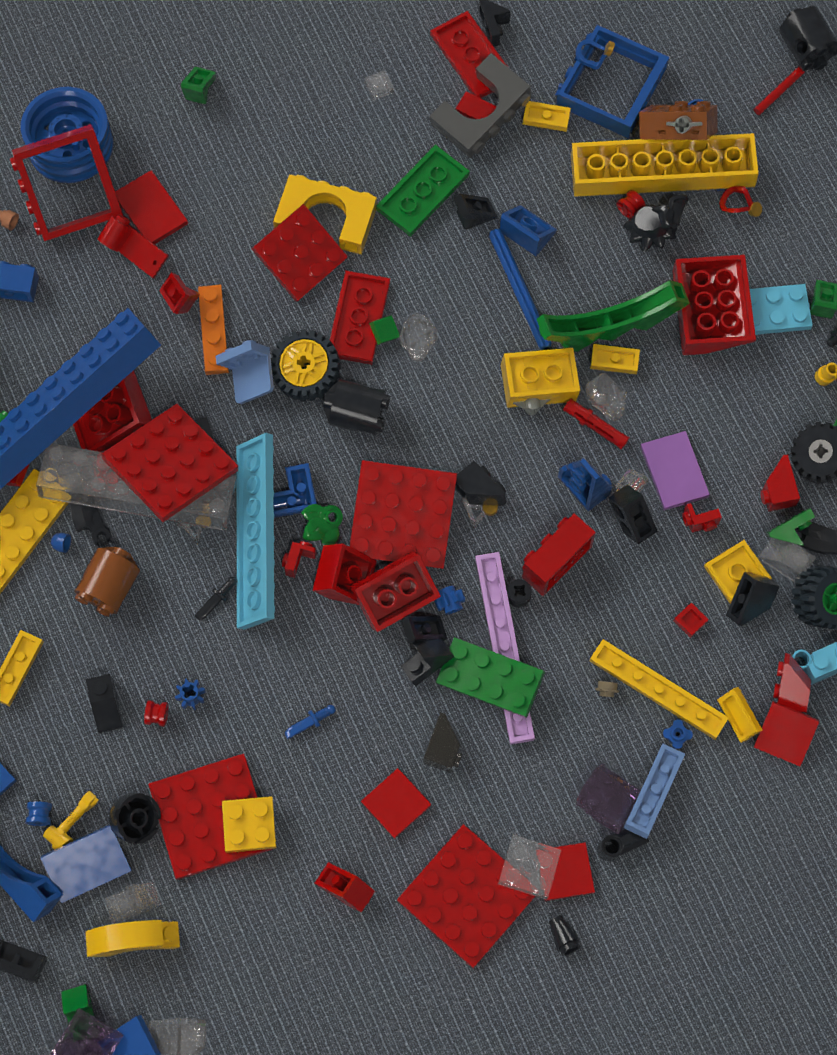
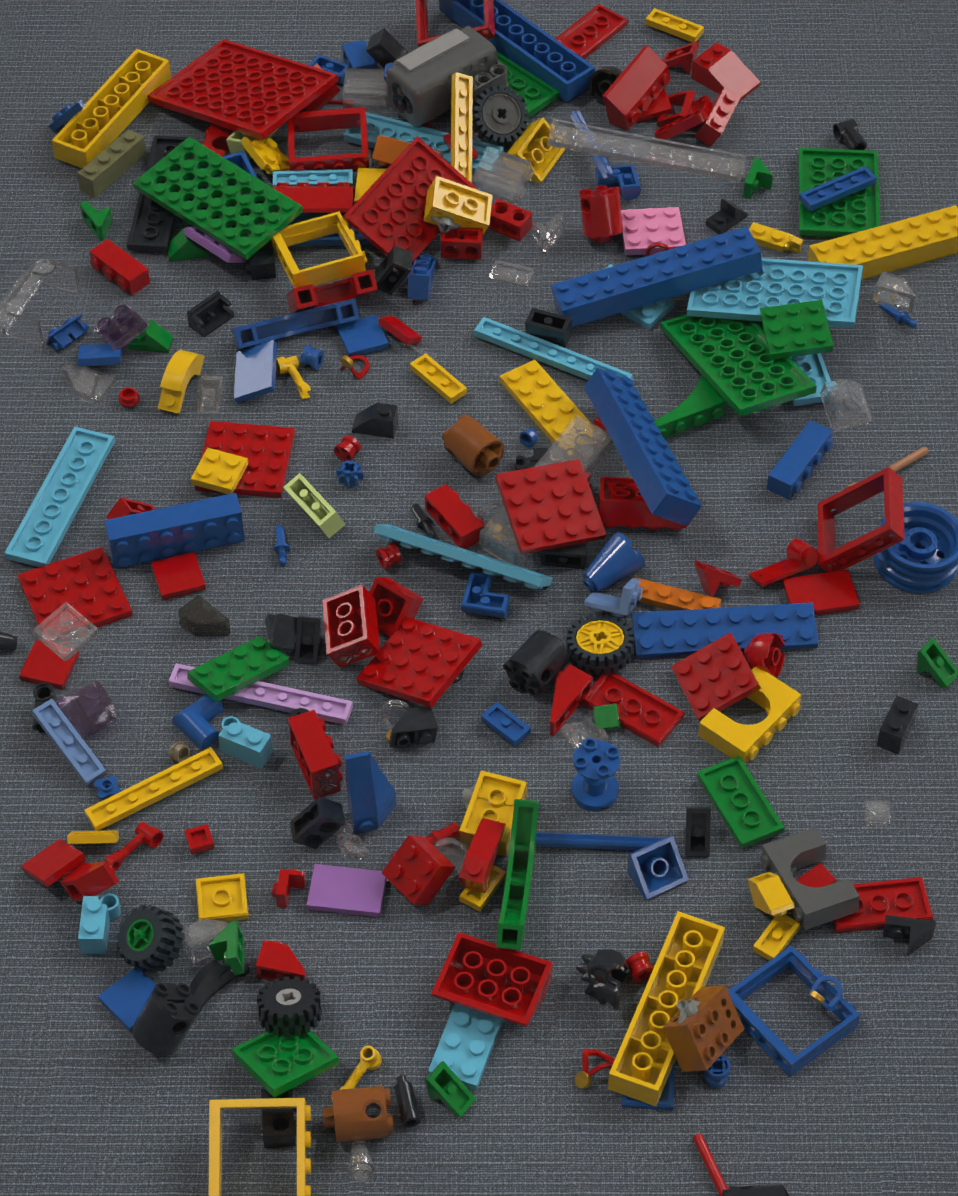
camera: 115 degrees right, 20 degrees down
(38, 767) = (347, 362): none -> red piece
(134, 817) = (269, 403): black cylinder -> none
(177, 987) = (128, 397): none -> red plate
(202, 565) = (454, 516): none -> red brick
(204, 392) = (613, 563): none -> blue cone
(234, 268) = (691, 630): none -> blue plate
(253, 704) = (314, 505): none -> yellowish green brick
(254, 222) = (765, 653): none -> red cylinder
(281, 93) = (897, 725): none -> black brick
(283, 605) = (388, 555): none -> red wheel
(292, 559) = (425, 579): red bracket -> none
(319, 525) = (445, 604): green plate -> none
(349, 982) = (59, 497): none -> medium azure plate
(353, 825) = (174, 530): none -> blue brick
(380, 372) = (569, 690): none -> red slope
(432, 413) = (505, 724): none -> blue plate
(450, 600) = (323, 668): blue gear -> none
(465, 302) = (595, 782): none -> blue piece
(516, 125) = (770, 894): none -> yellow slope
(565, 695) = (195, 718): none -> blue brick
(569, 631) = (245, 742): none -> medium azure hinge
(599, 358) = (481, 855): none -> red slope
(637, 407) = (418, 870): none -> red brick
(710, 671) = (145, 834): none -> red brick
(752, 598) = (188, 891): black slope -> none

